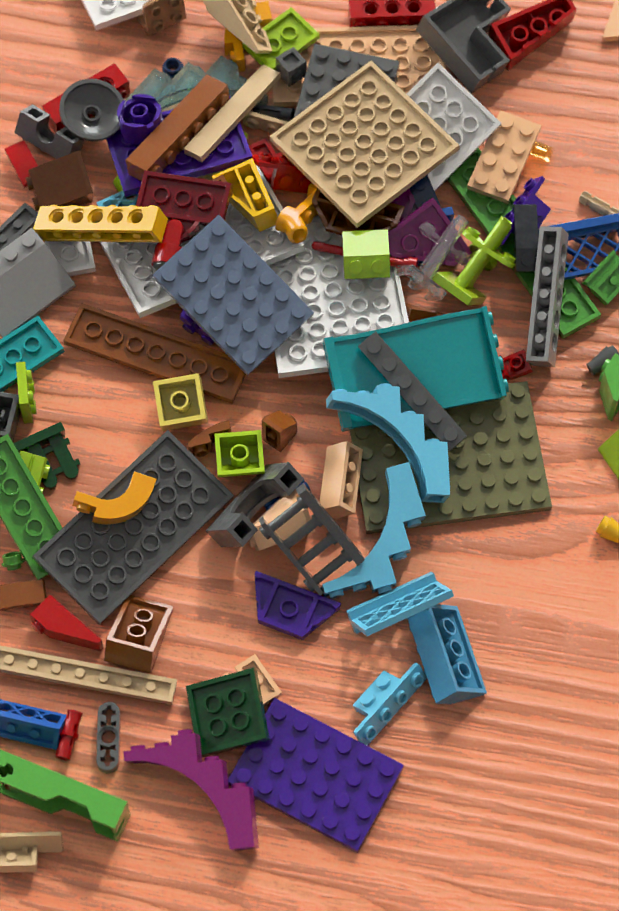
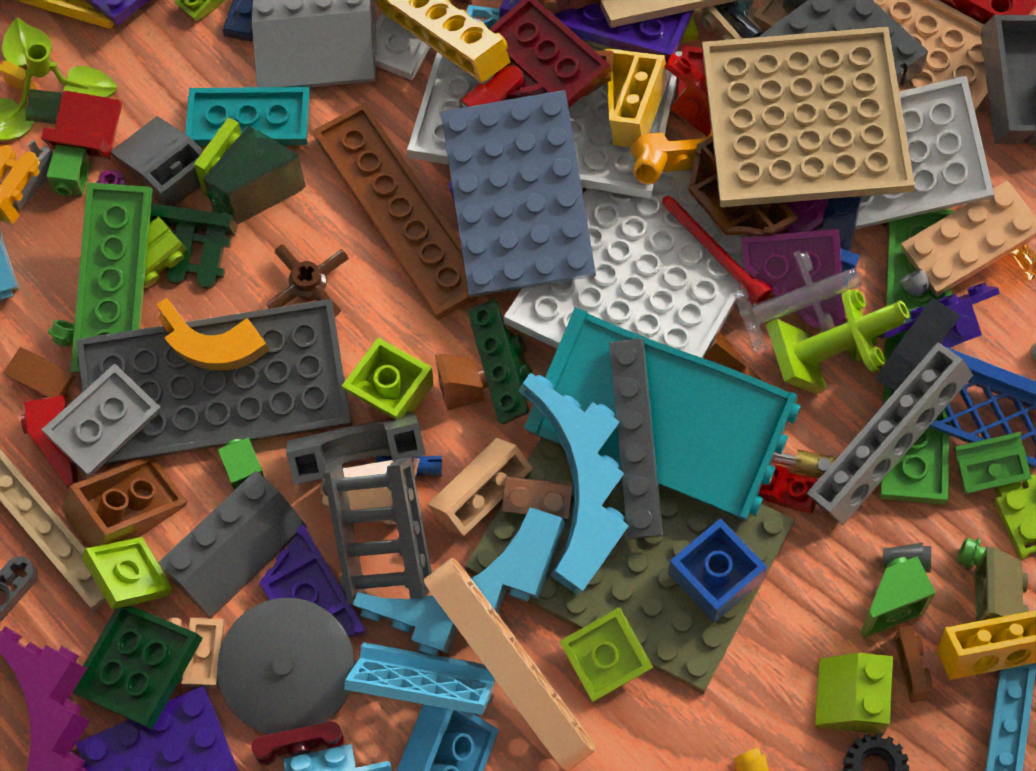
camera: 40 degrees right, 0 degrees up
(55, 389) = (253, 176): none -> clear green slope
(90, 591) = (101, 420): none -> light grey plate
(130, 428) = (306, 271): none -> reddish brown bar
(177, 667) = (126, 572): none -> lime plate
(180, 402) = (374, 278): light yellow brick -> none
(189, 562) = (239, 460): none -> bright green brick
(201, 443) = (359, 339): dark orange slope -> none
(223, 610) = (232, 544): none -> dark grey slope
(293, 401) = (501, 359): none -> dark green bracket
(313, 654) = (285, 665): none -> dark grey dish
(354, 689) = (297, 741): none -> dark red plate
(366, 254) = (709, 245): lime slope -> none
(375, 464) = (538, 494): none -> nougat plate
(440, 562) = (509, 664): none -> light nougat beam
(485, 523) = (606, 654): none -> lime plate
(492, 202) = (915, 282): none -> light grey hinge
(512, 434) = (717, 570): none -> blue brick
(513, 343) = (806, 462): none -> clear yellow piece

